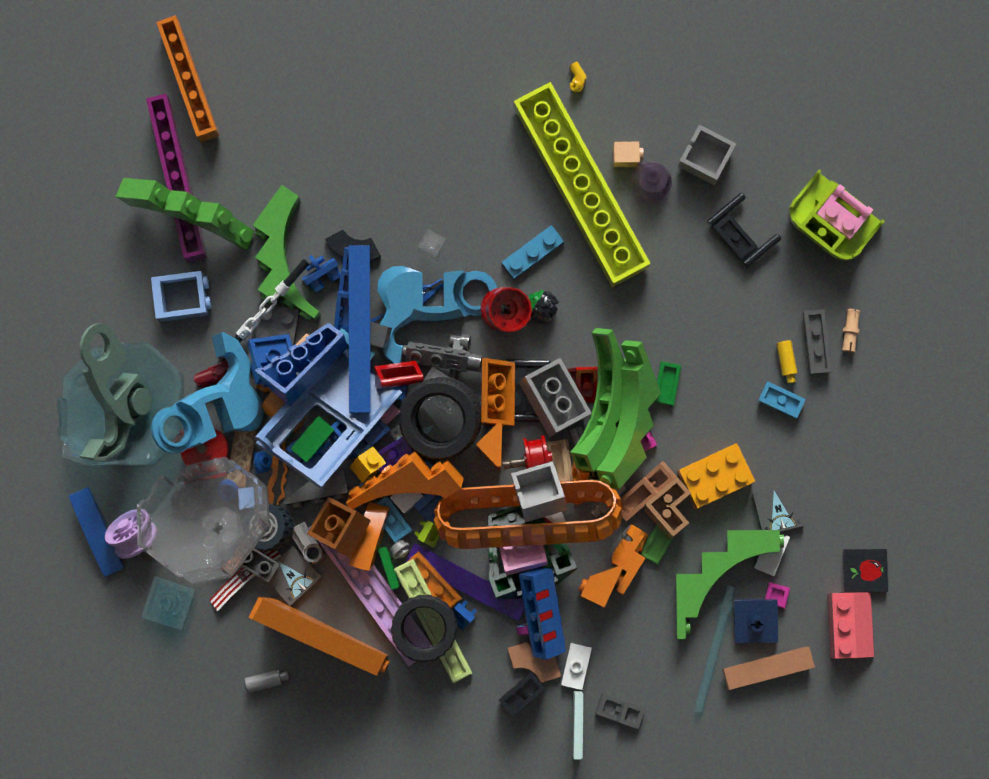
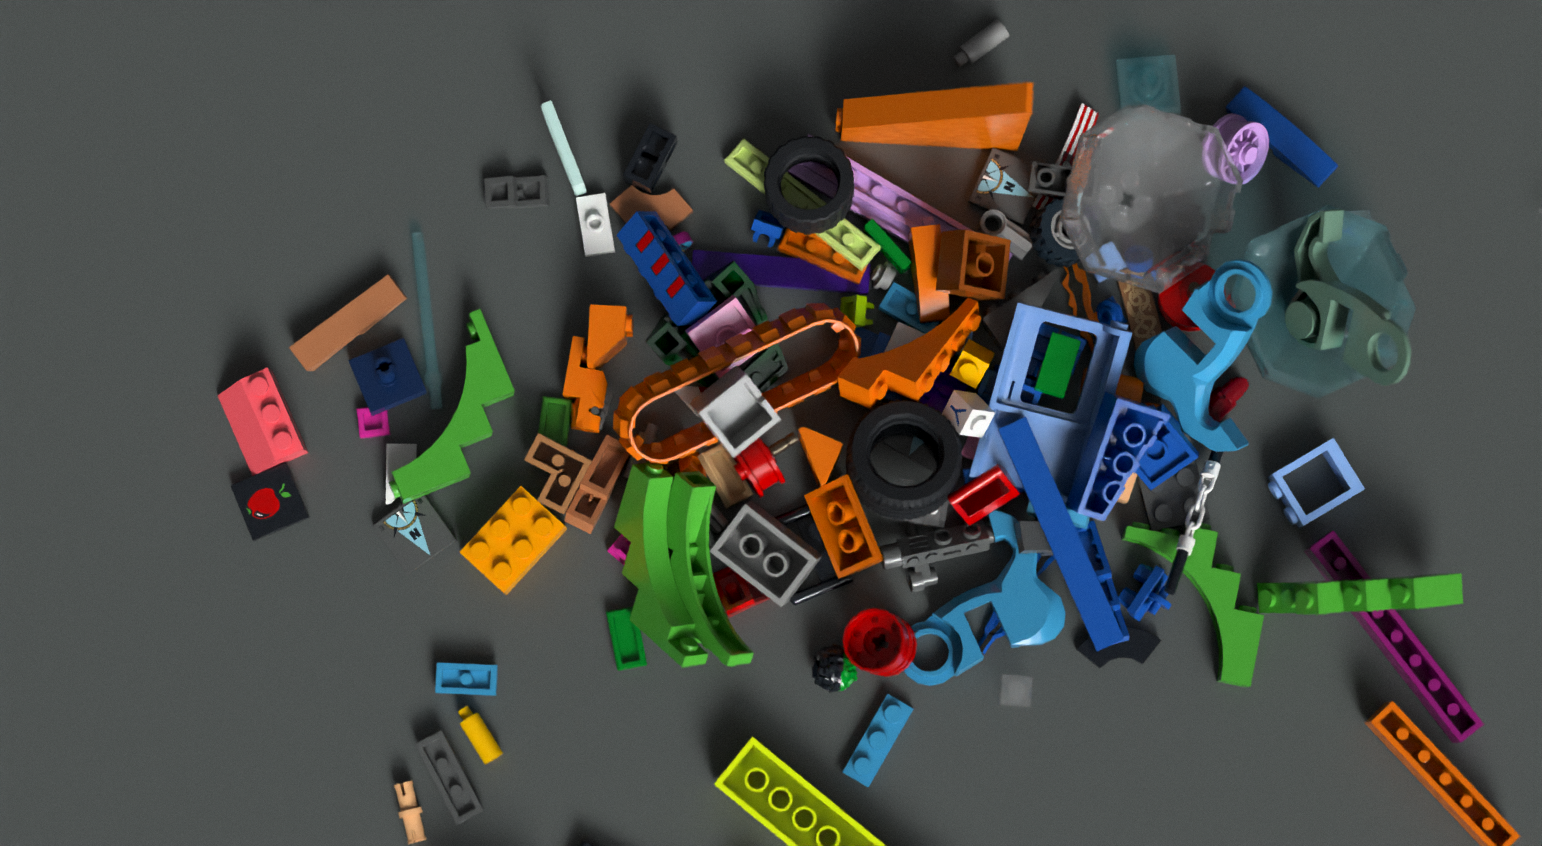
camera: 155 degrees right, 0 degrees up
(385, 430) = (968, 413): none -> white brick

